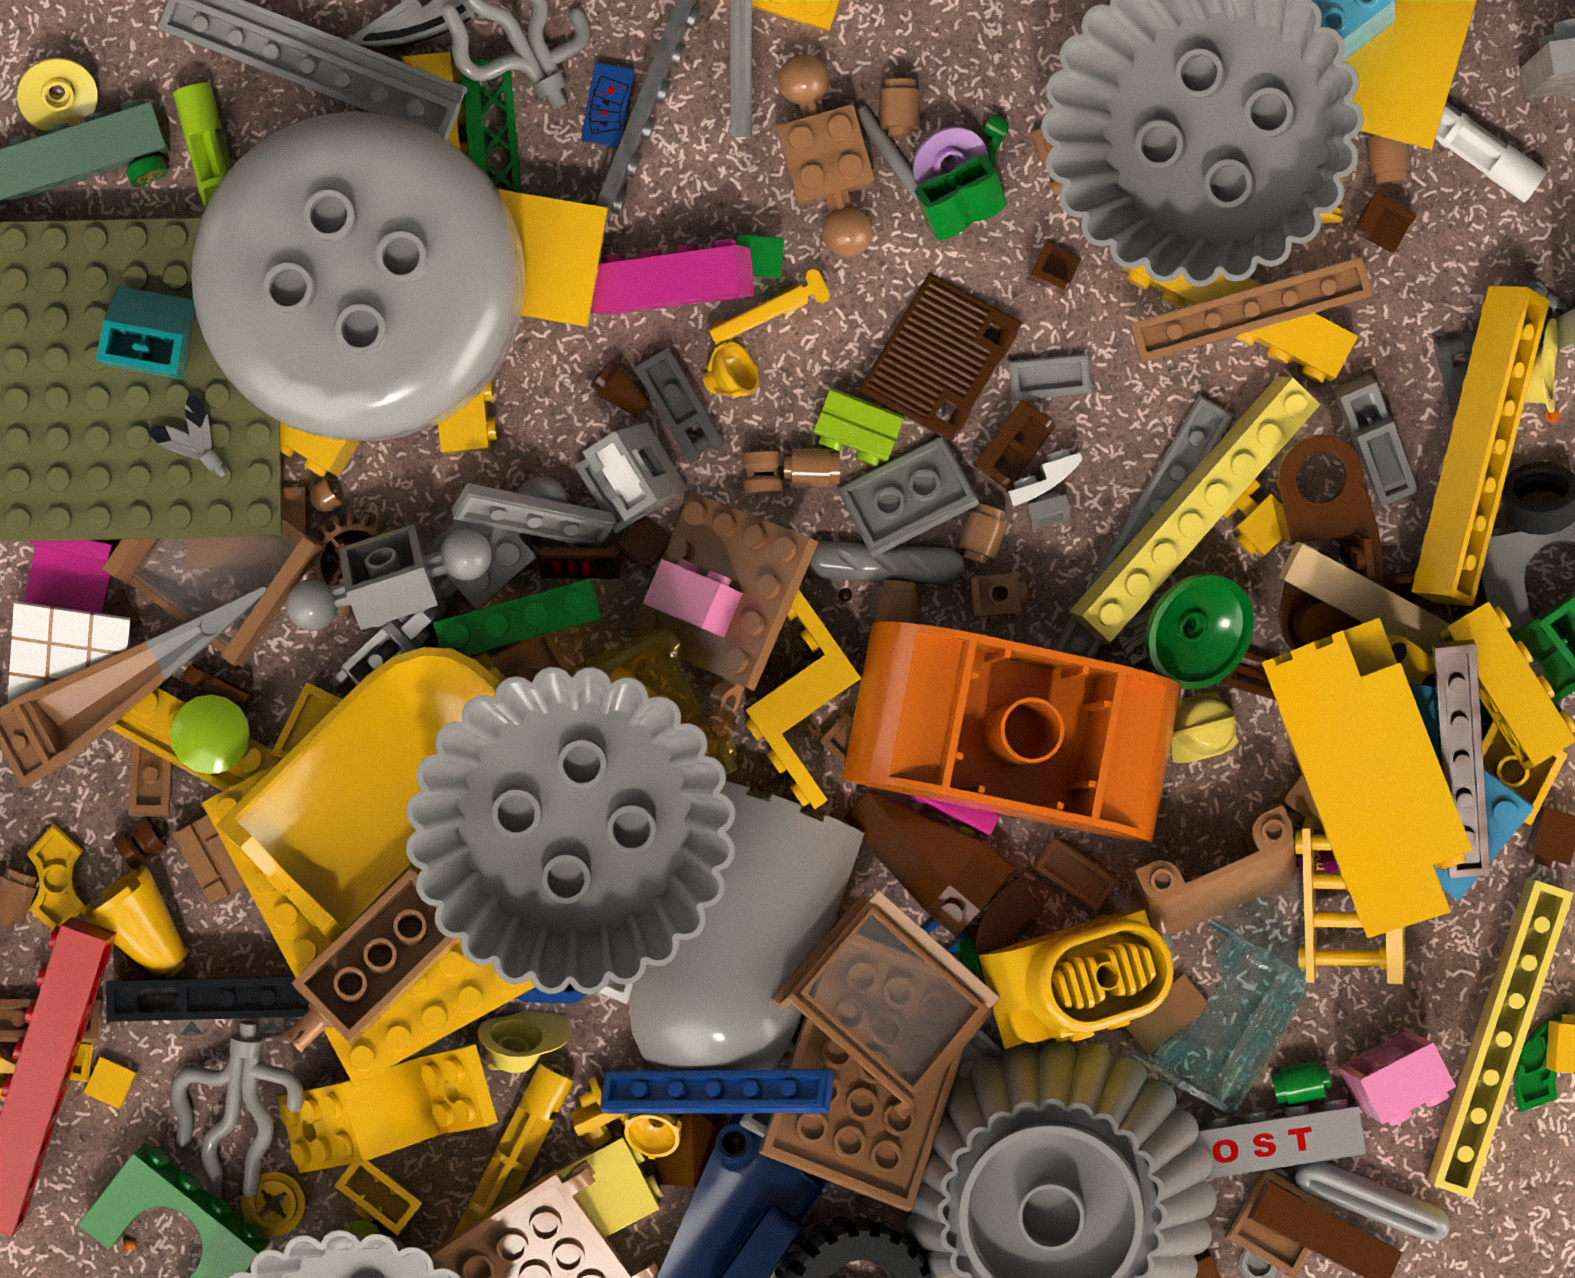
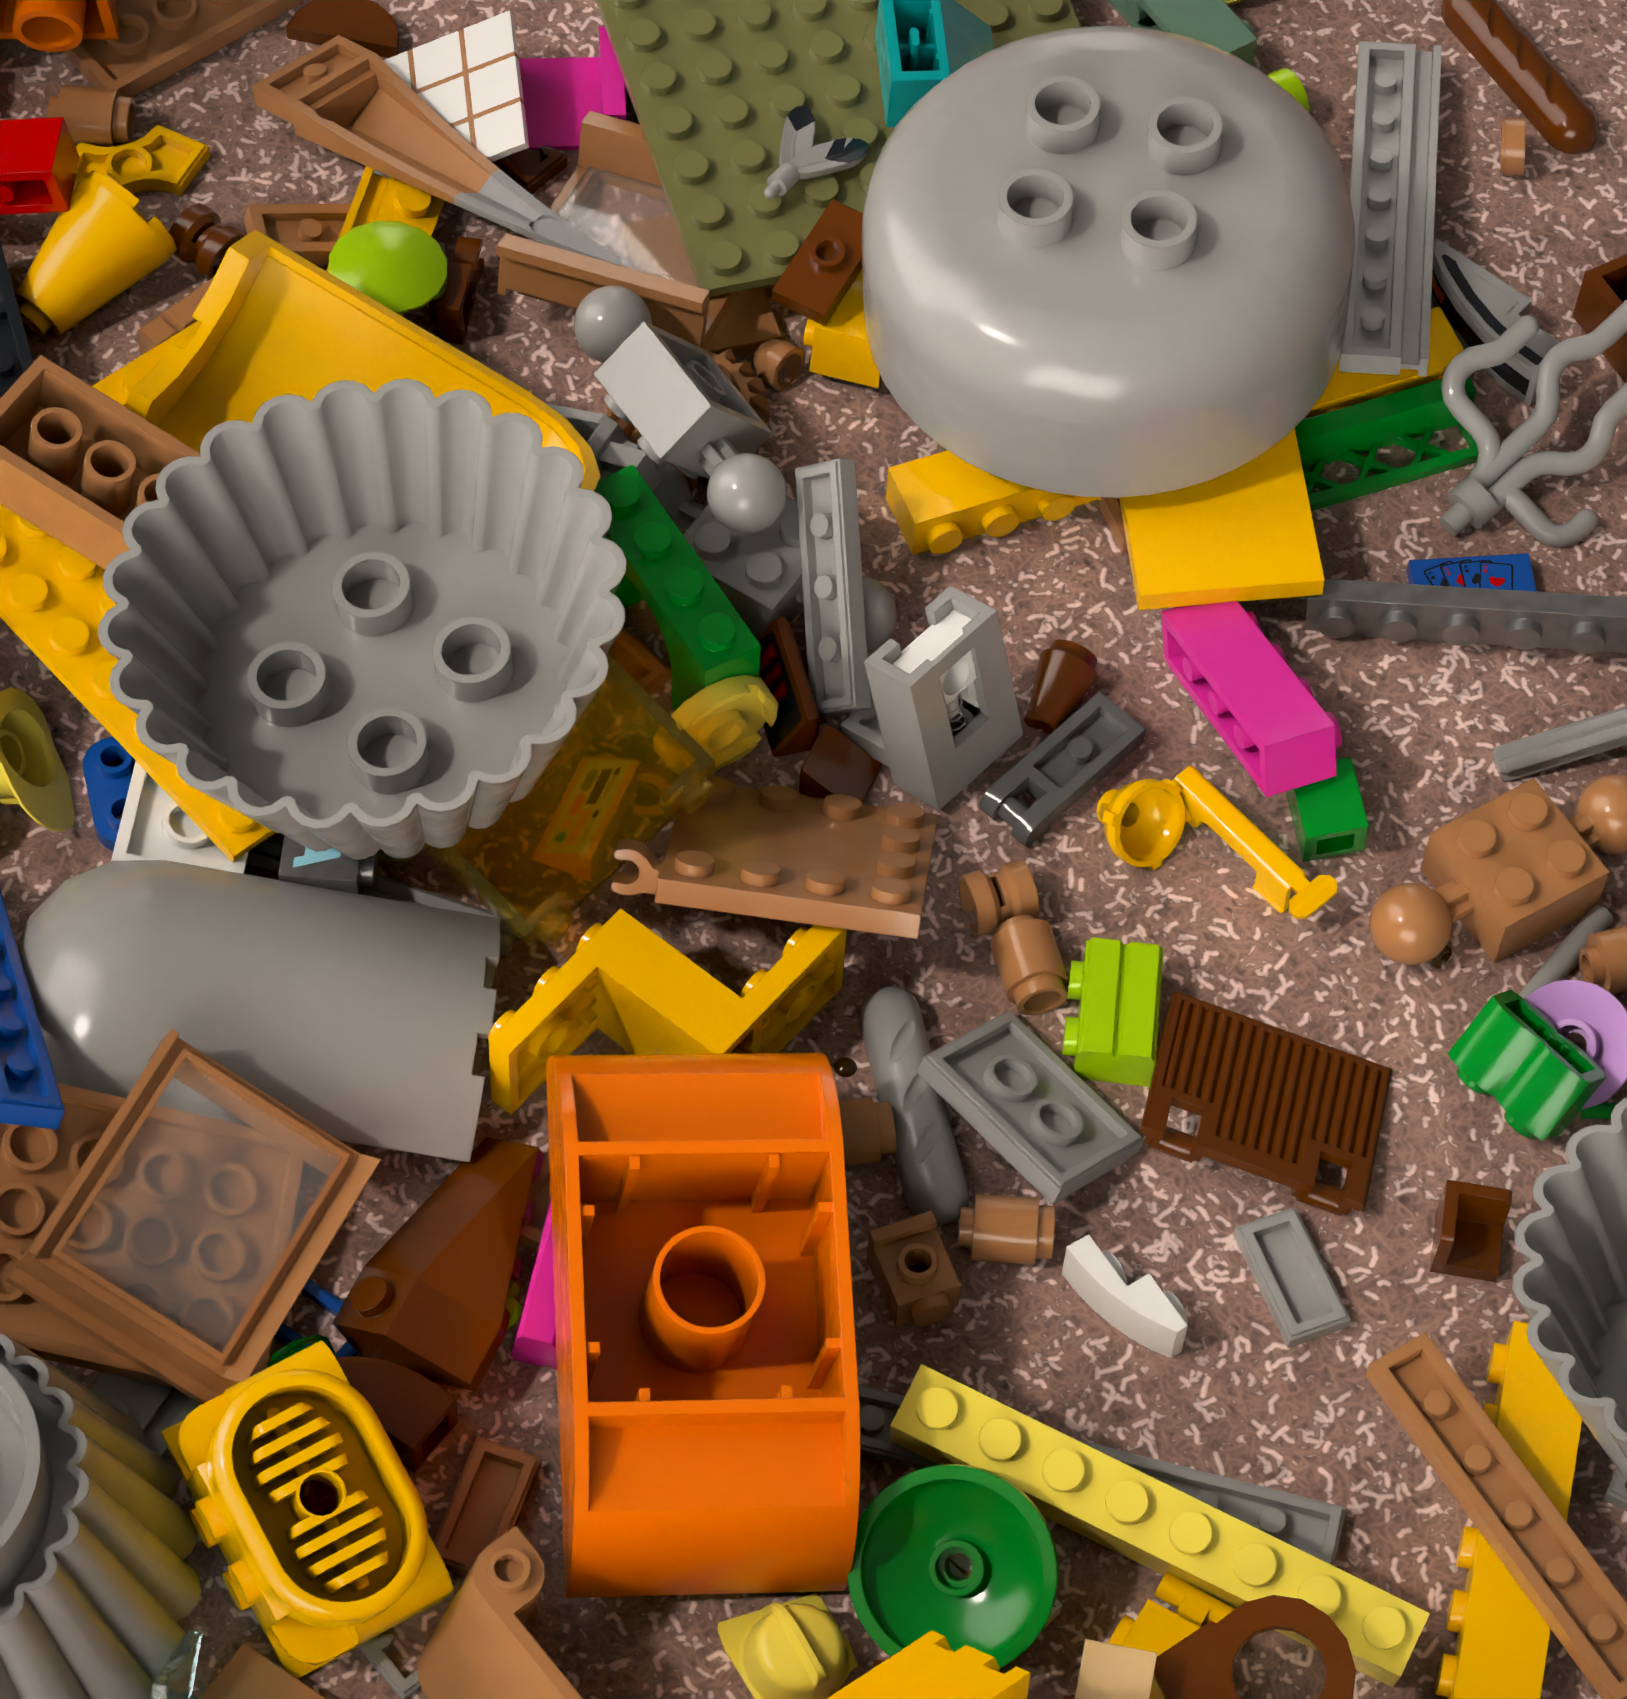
camera: 75 degrees right, 30 degrees down
(287, 451) = (823, 265): none -> reddish brown plate
(608, 609) = (728, 717): none -> light yellow tile
(693, 597) = (776, 806): bright pink brick -> none
(1015, 445) = (1170, 1238): reddish brown hinge -> none
(1048, 511) = (1074, 1316): light grey plate -> none

